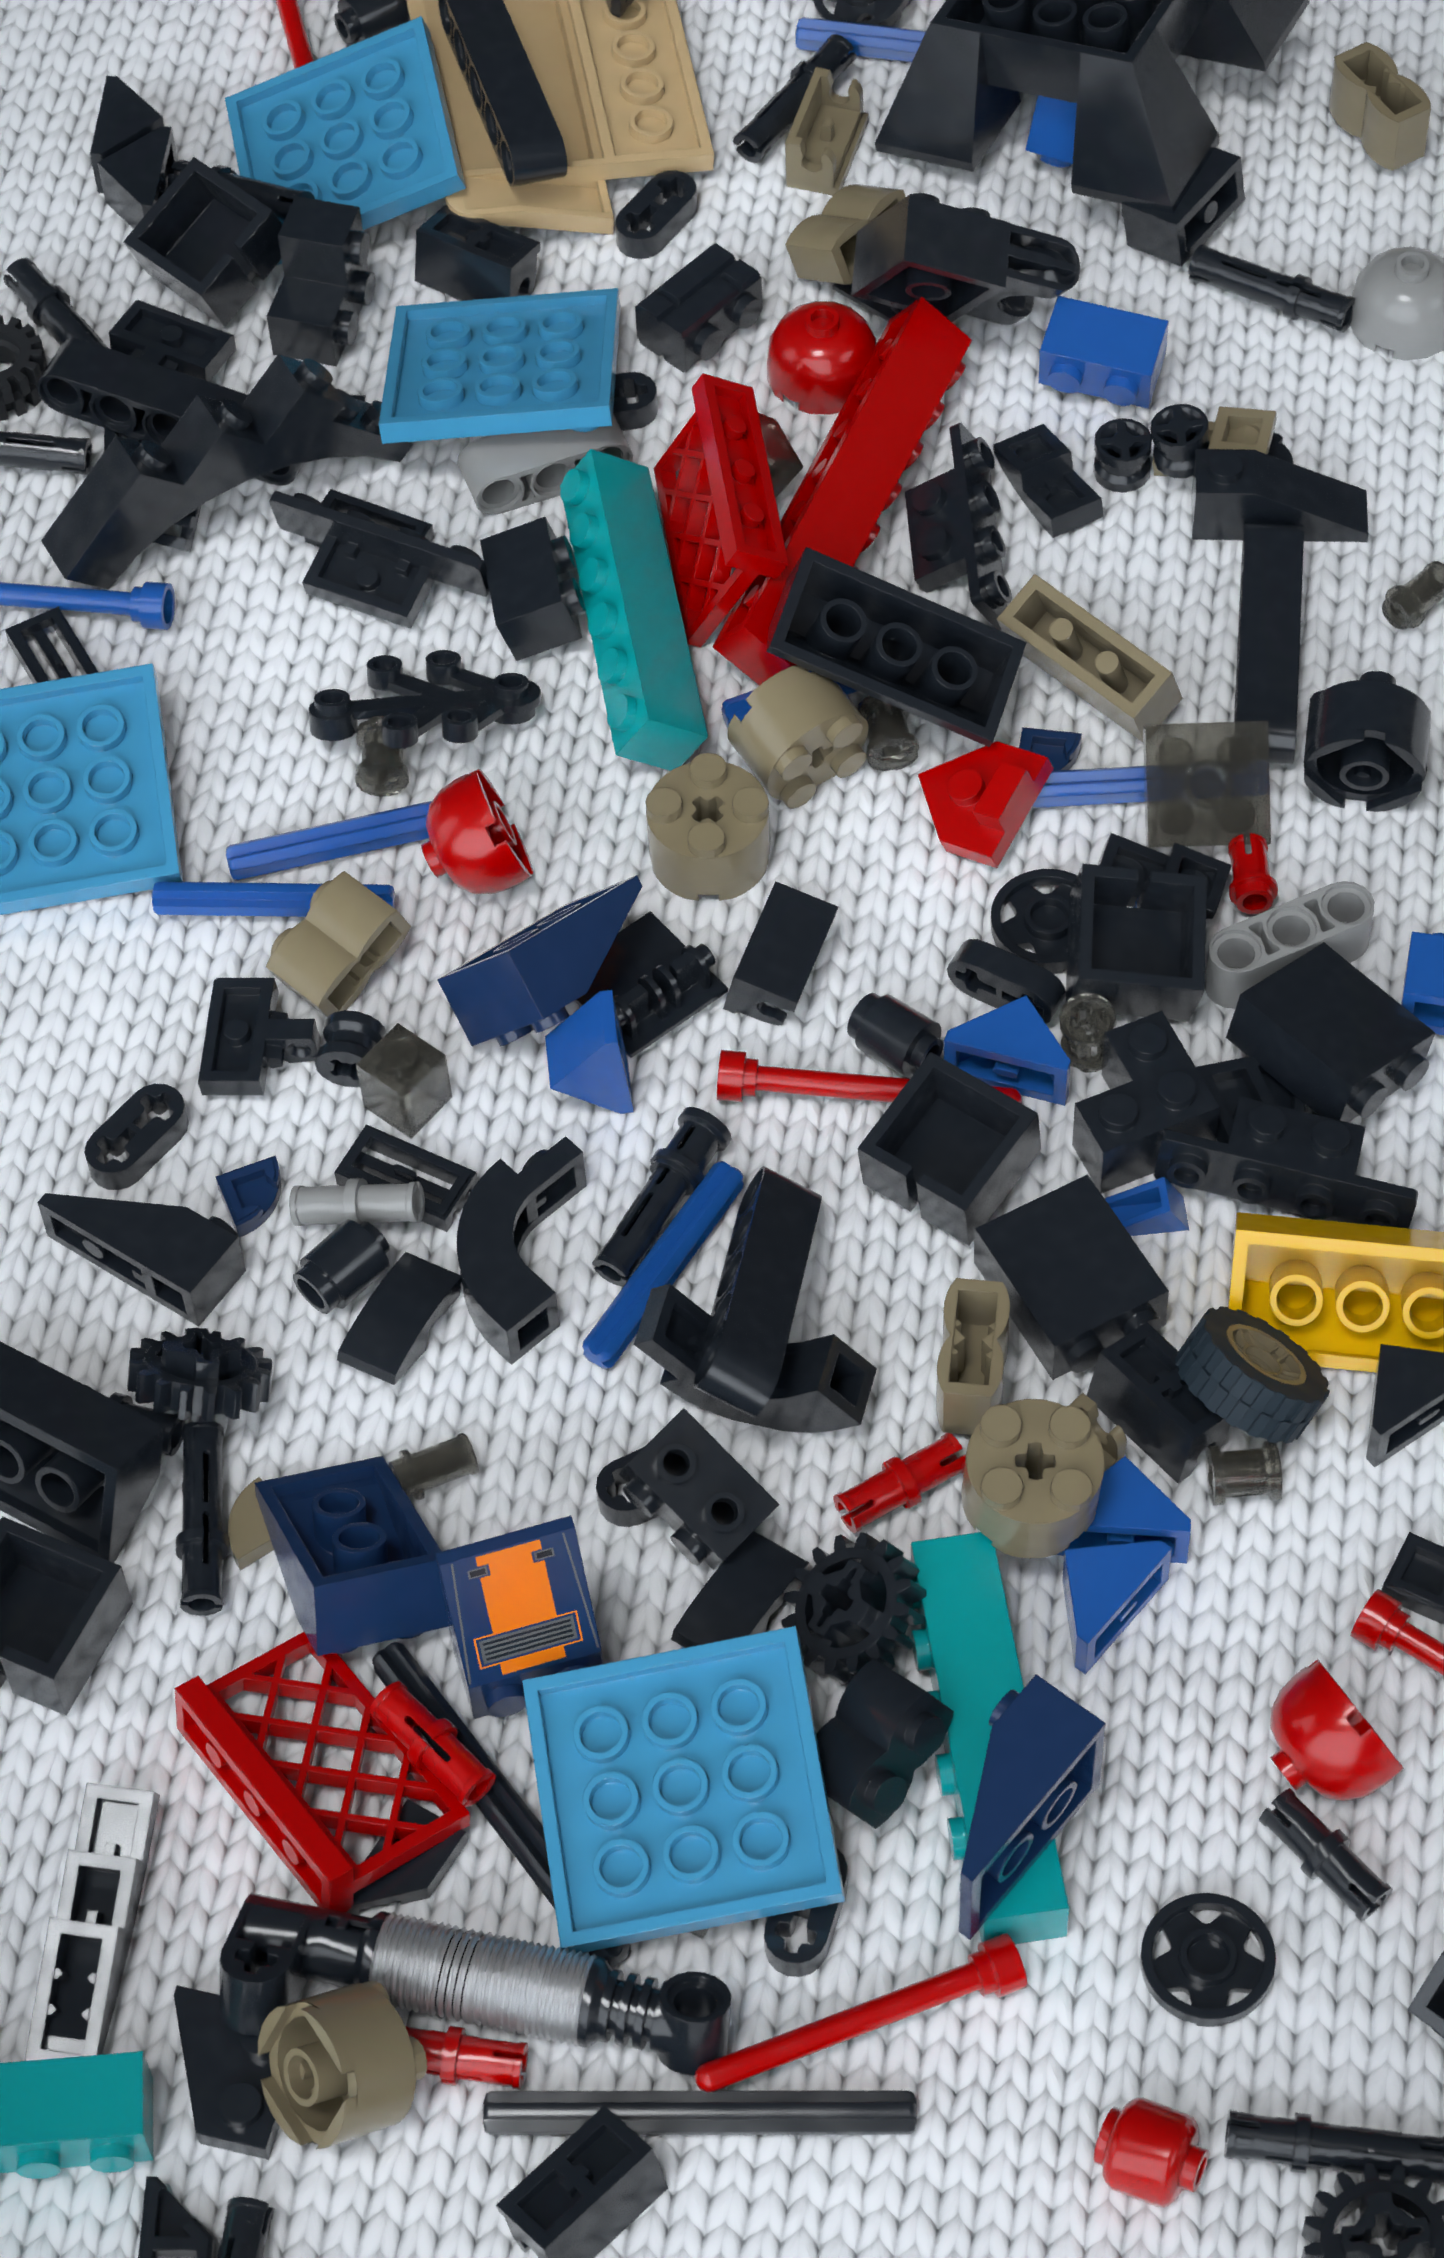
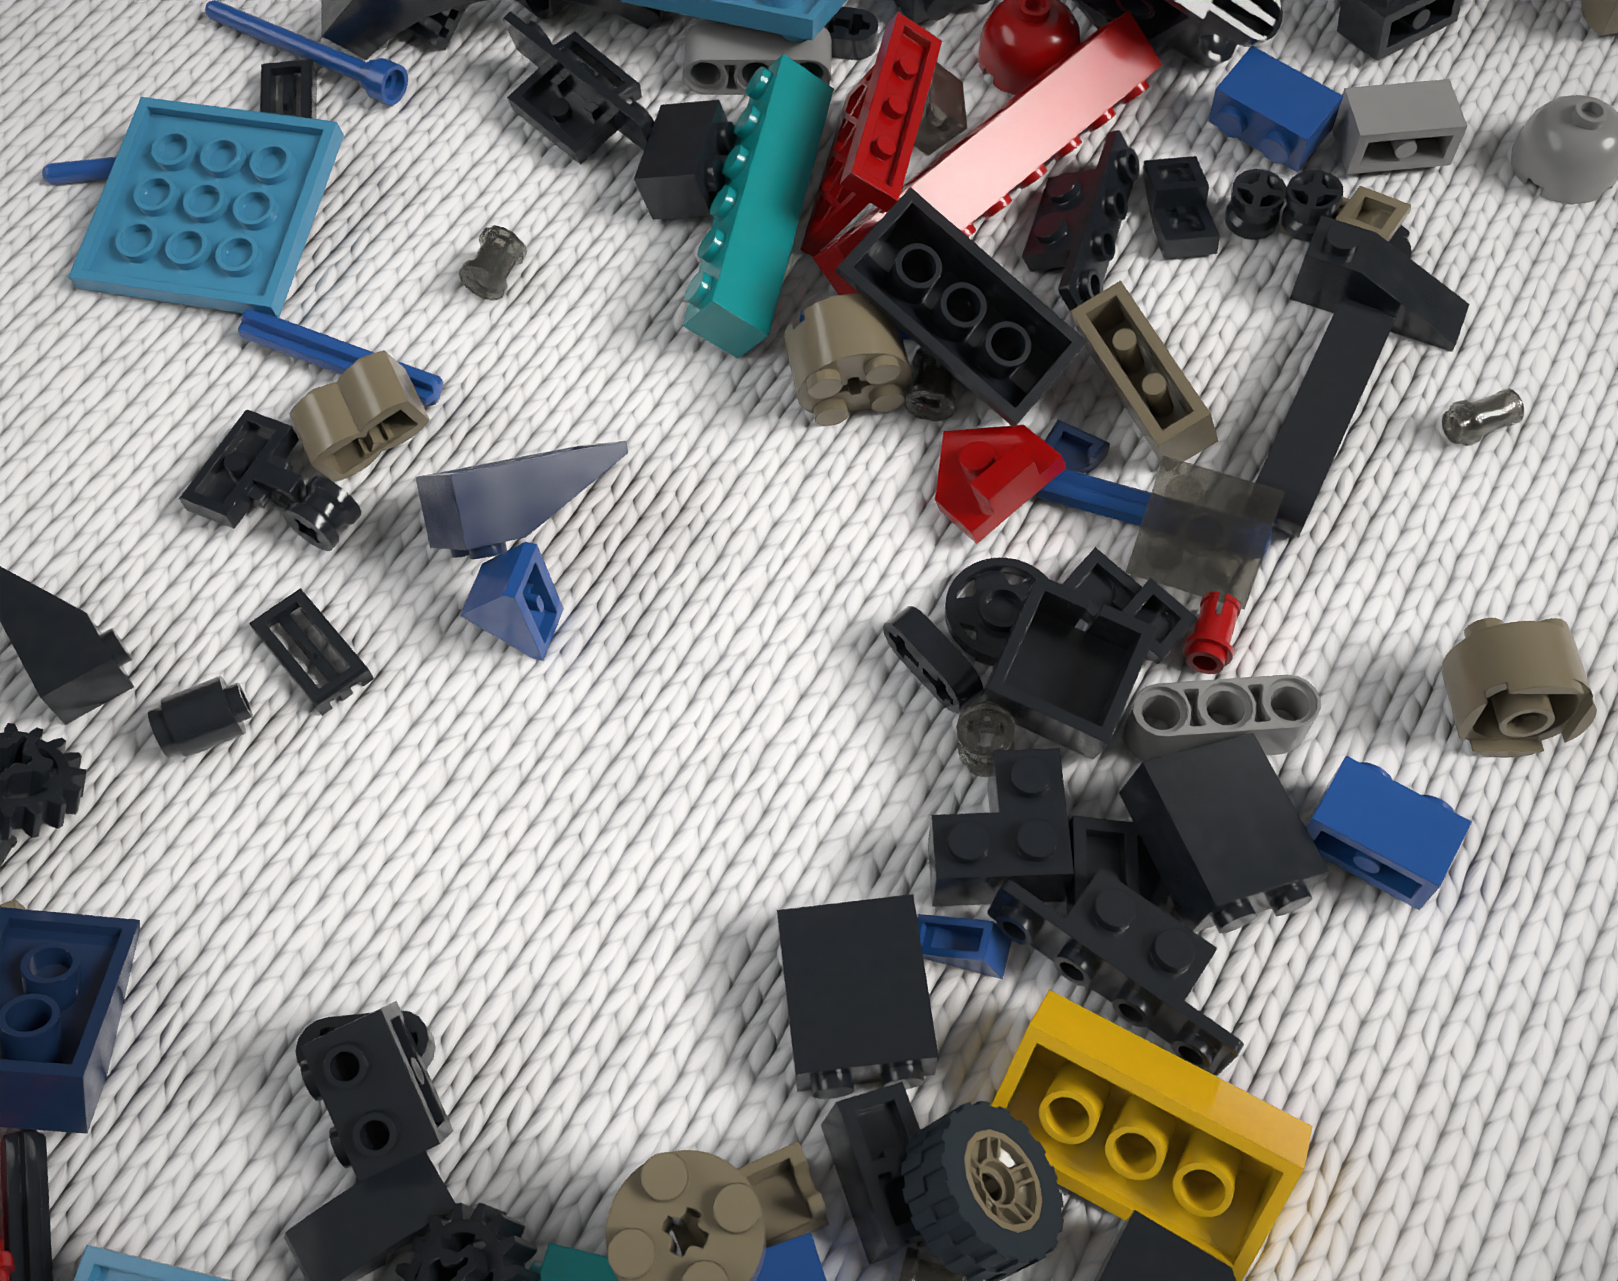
camera: 20 degrees right, 5 degrees up
(133, 1134) = (109, 528): black beam -> none
(251, 1194) = (174, 617): dark blue tile -> none
(328, 841) = (428, 323): blue axle -> none
(357, 1202) = (246, 662): light grey pin -> none
(397, 1318) = (216, 790): black slope -> none
(404, 1080) = (347, 559): clear smoke brick -> none
(424, 704) = (554, 233): black plant -> none
(434, 1465) = (170, 952): clear smoke pin -> none
(474, 838) = (524, 358): red cylinder -> none
(500, 1291) = (338, 746): black arch -> none
(517, 1612) = (119, 1177): slope -> none
(654, 981) = (608, 543): black hinge -> none
(663, 1263) = (484, 826): blue axle -> none
(674, 1174) = (539, 738): black pin -> none
(708, 829) = (729, 419): dark tan brick -> none
(743, 1077) = (646, 663): red piece -> none
(758, 1292) = (526, 907): black beam -> none
(780, 954) = (735, 557): black hinge -> none
(819, 1385) = (494, 975): black arch -> none
(894, 1033) = (806, 674): black brick -> none
(900, 1483) = (588, 1152): red pin -> none
(949, 1148) = (794, 813): black piece -> none
(972, 1353) = (702, 1062): dark tan brick -> none
(1012, 1051) = (902, 730): blue slope -> none
(1231, 333) = (1398, 126): none -> light grey brick
(1292, 295) = (1481, 119): black pin -> none
(1367, 743) = (1377, 543): black brick -> none

